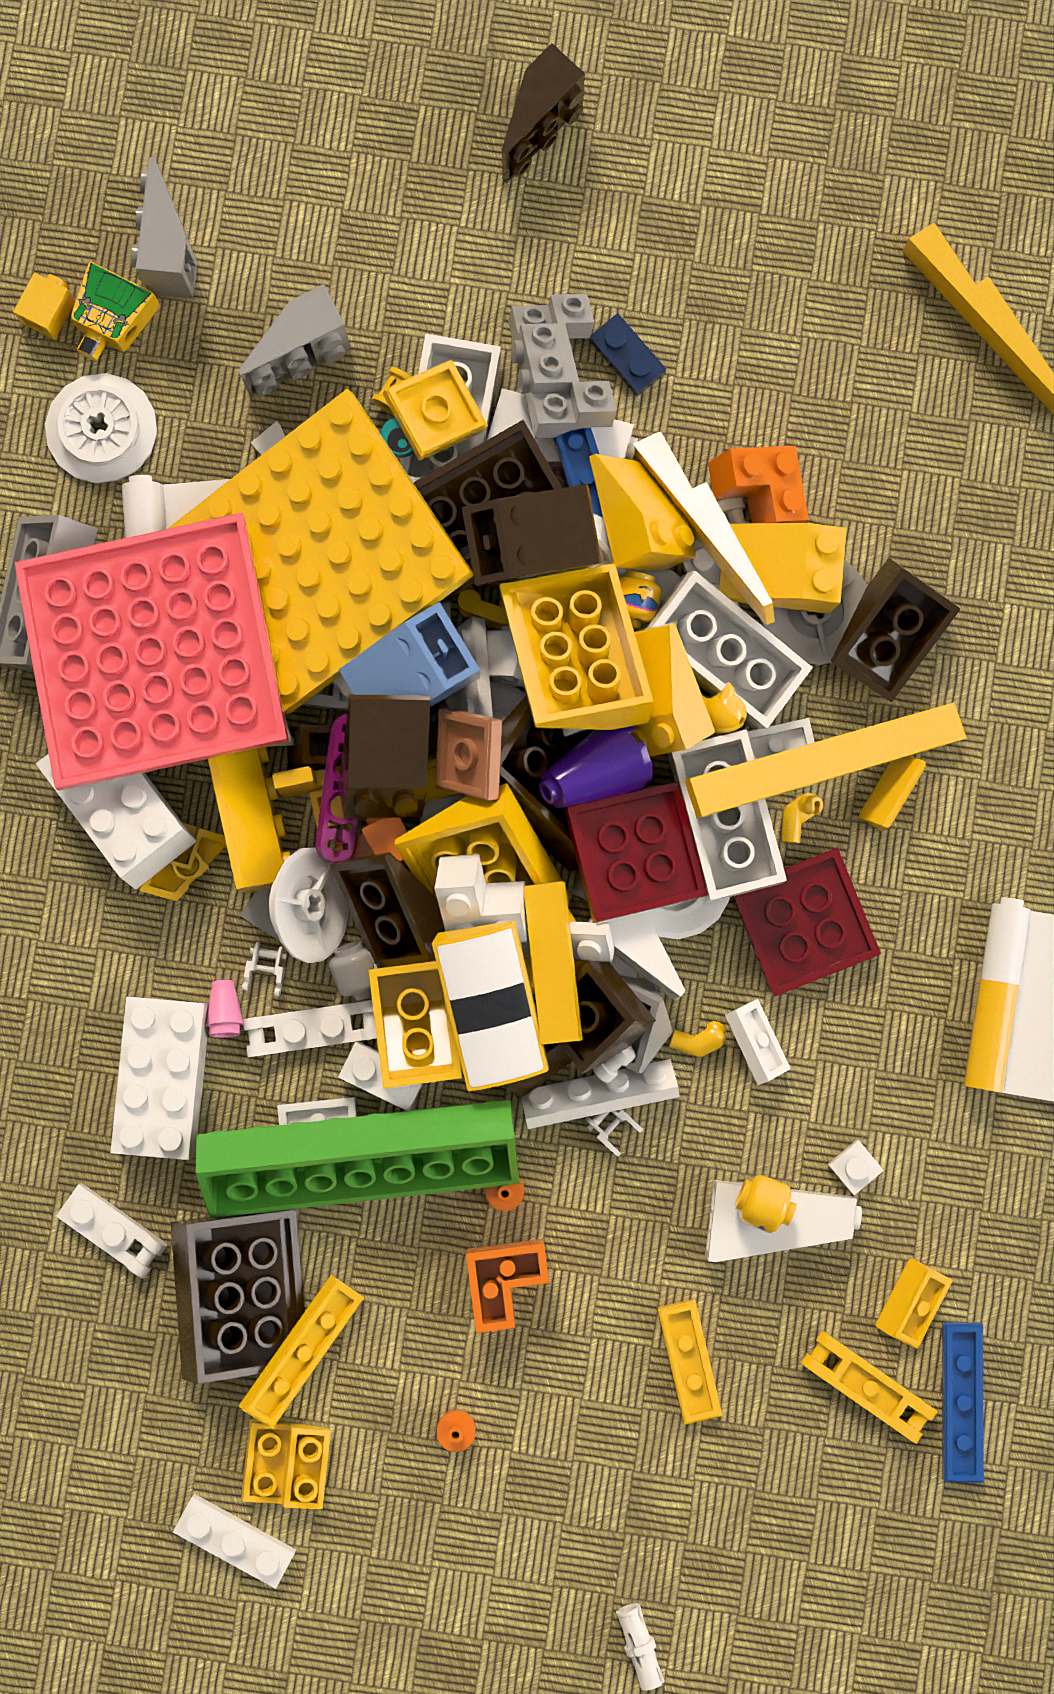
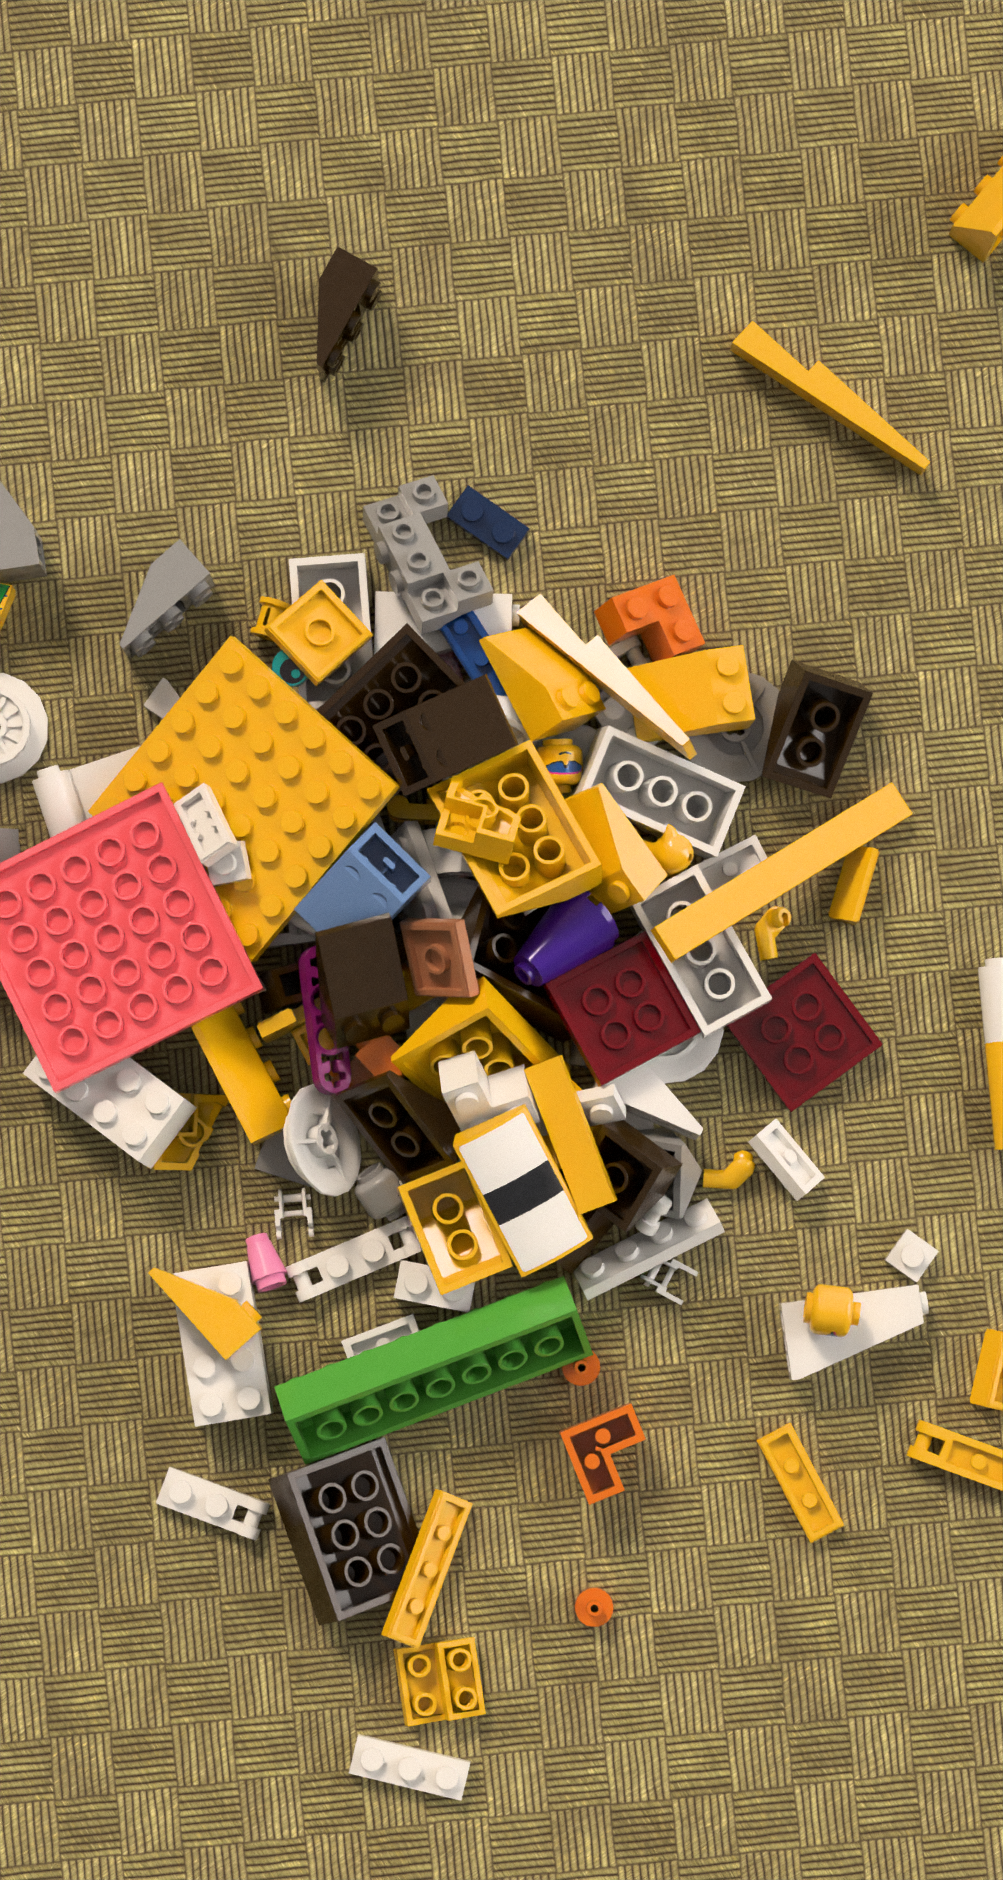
camera: 15 degrees left, 0 degrees up
(156, 1049) = (215, 1315): none -> yellow slope
(273, 565) = (206, 825): none -> white plate
(286, 608) = (232, 867): none -> white plate
(538, 630) = (476, 825): none -> yellow slope
(640, 1646) = (822, 1763): white pin -> none

